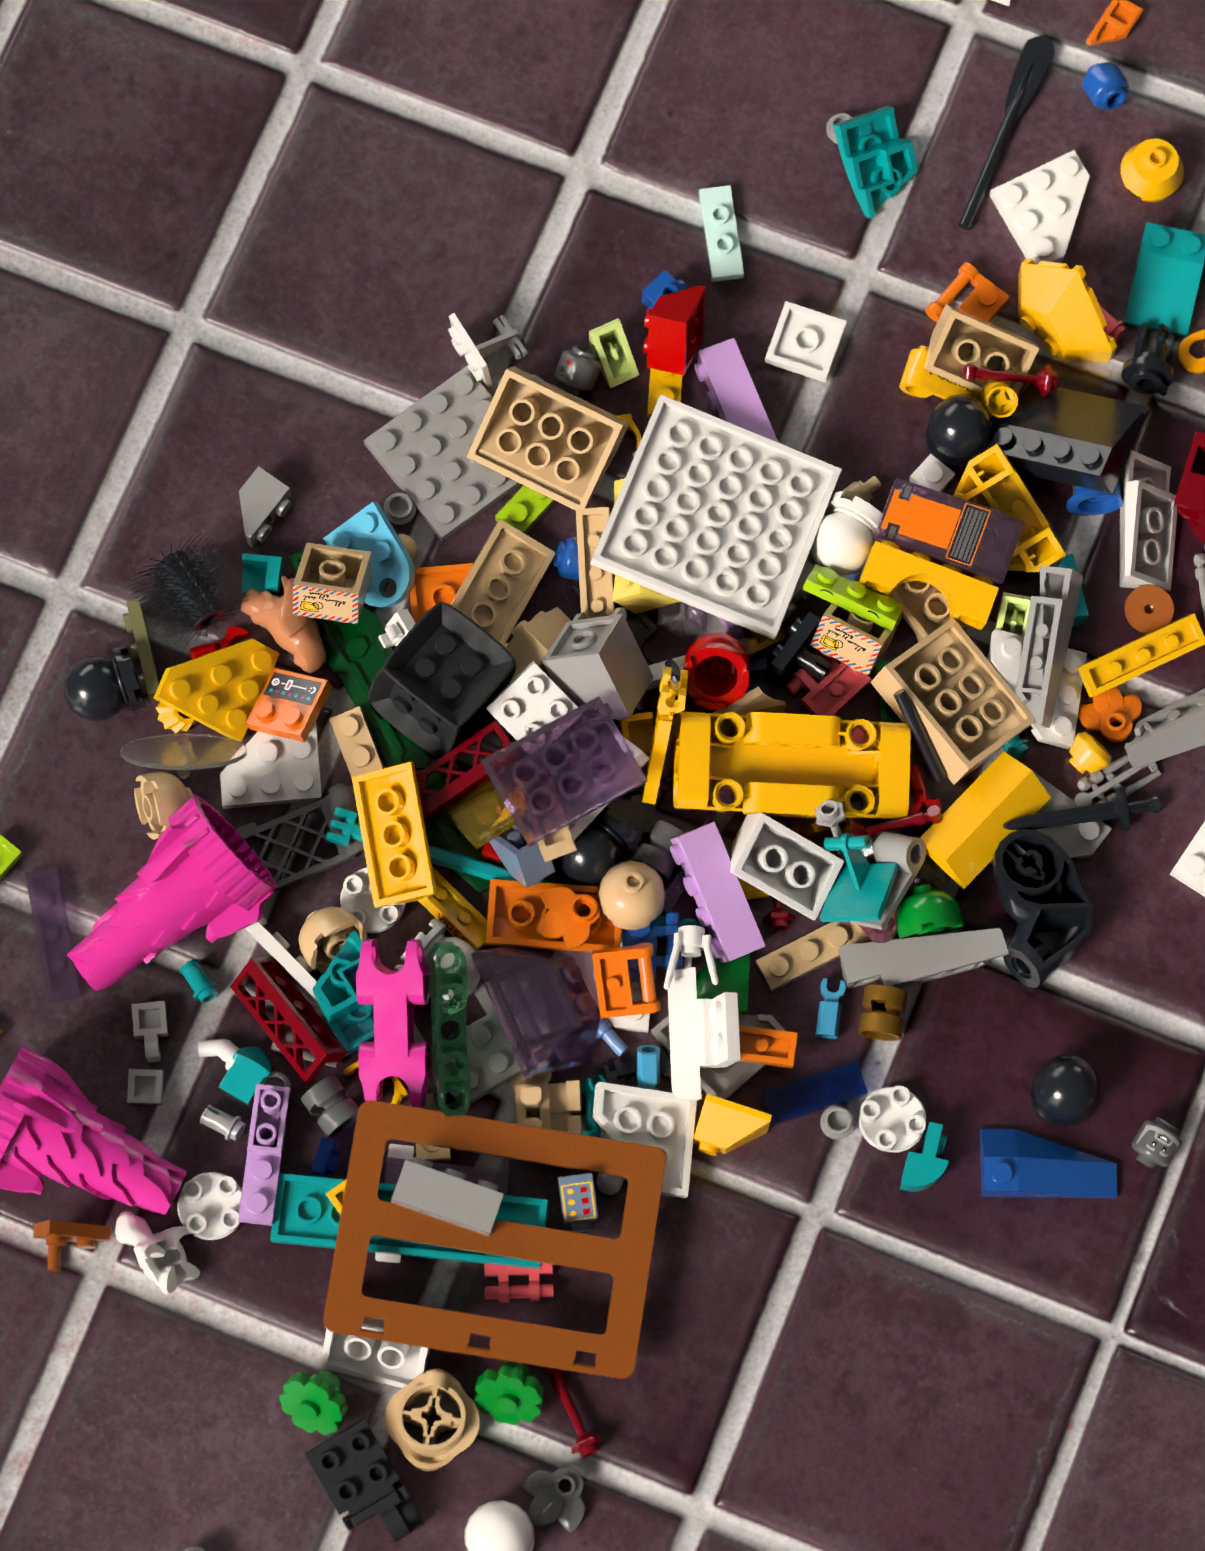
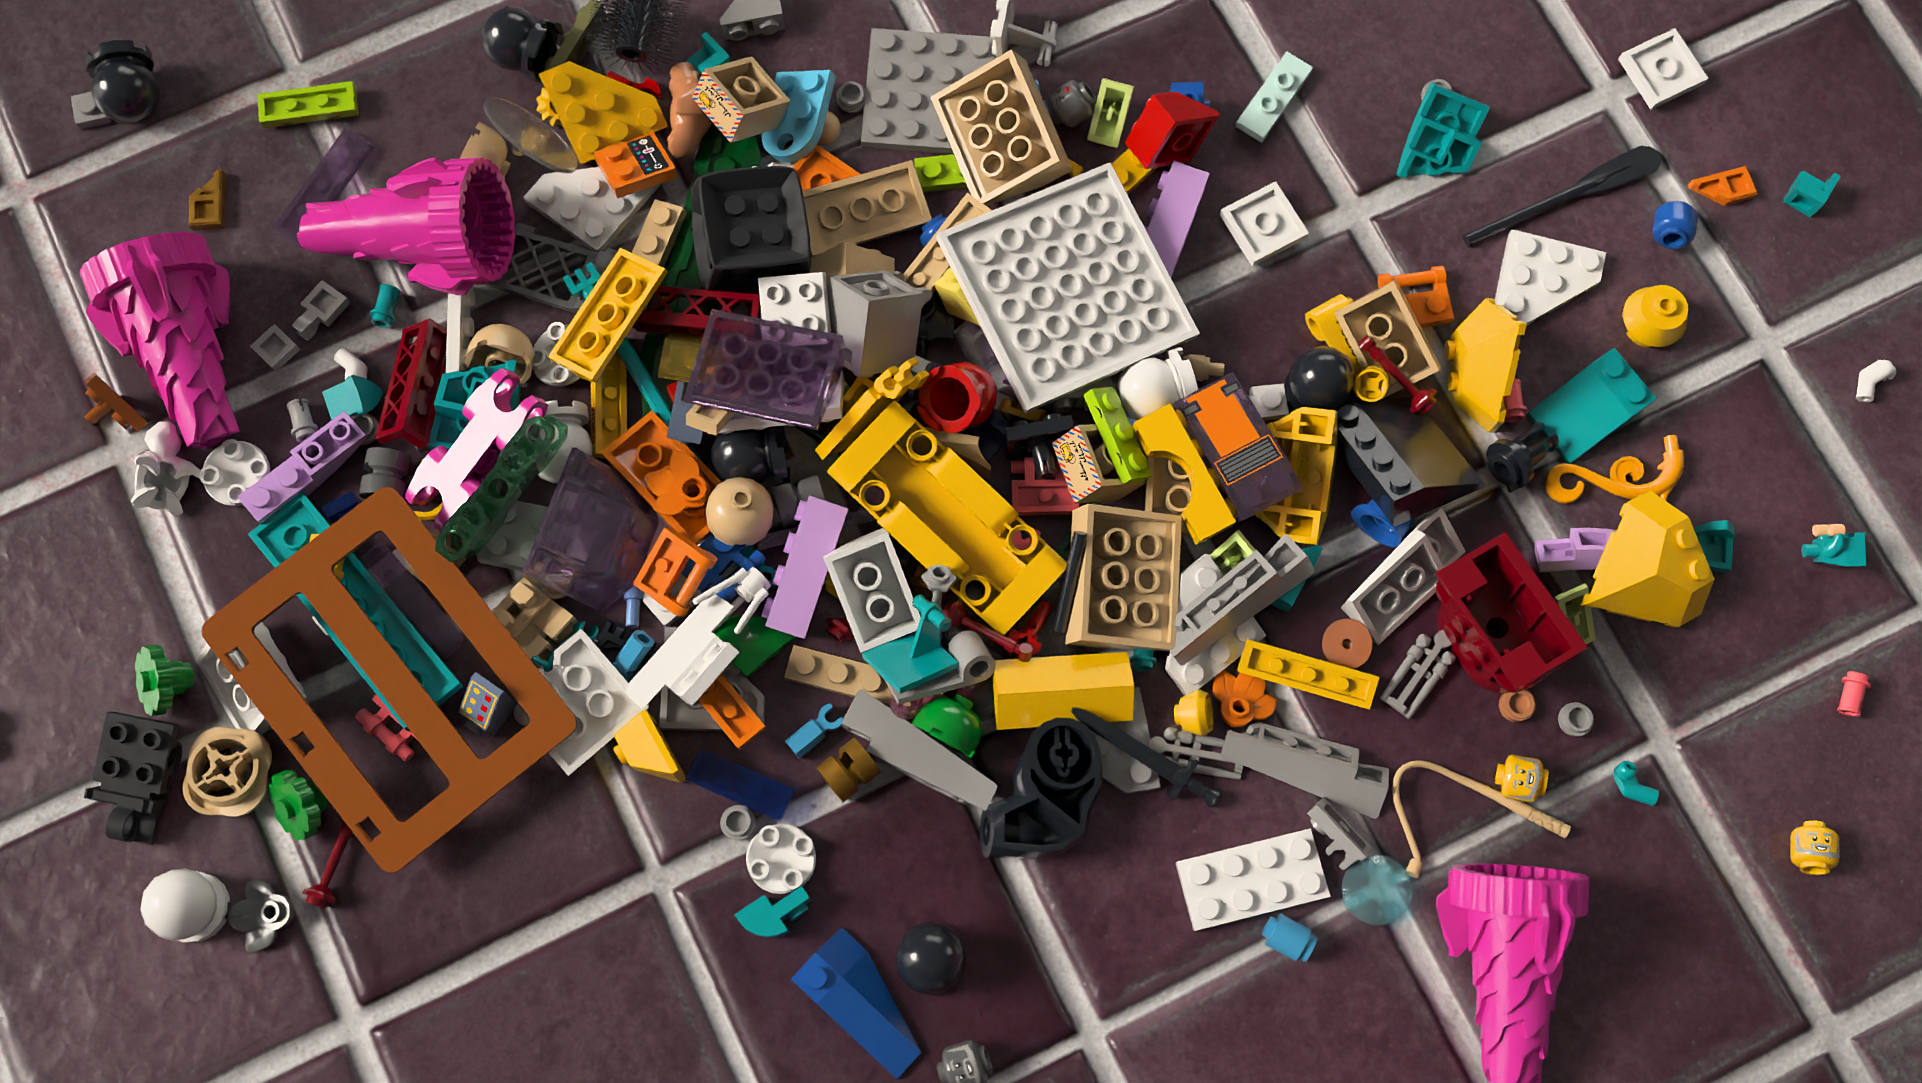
camera: 40 degrees right, 0 degrees up
(447, 1196) = (376, 611): light grey brick -> none

